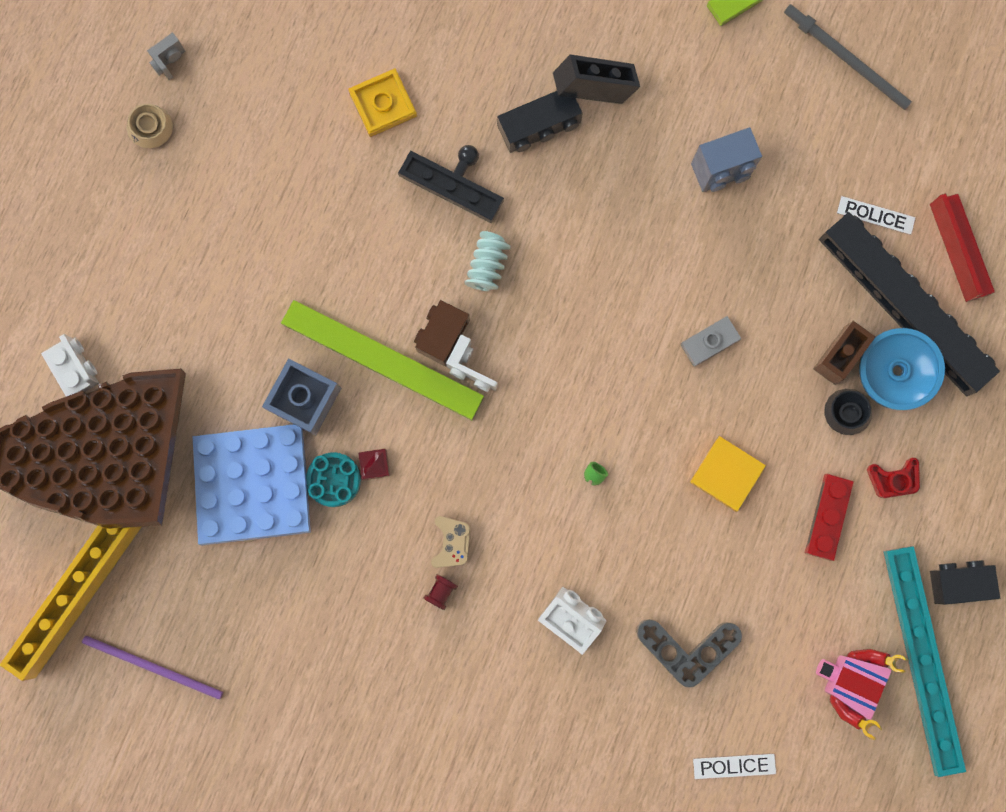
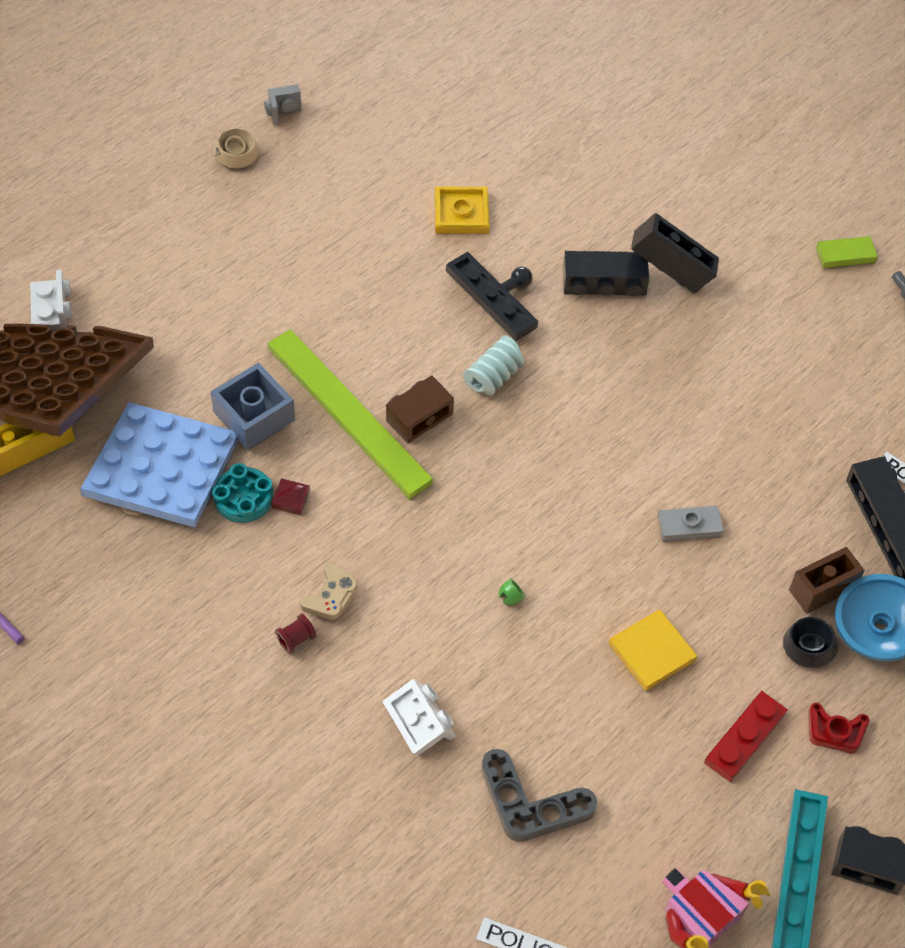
camera: 20 degrees right, 25 degrees down
(462, 353) = (421, 443): white bracket -> none
(726, 160) = (775, 366): sand blue brick -> none

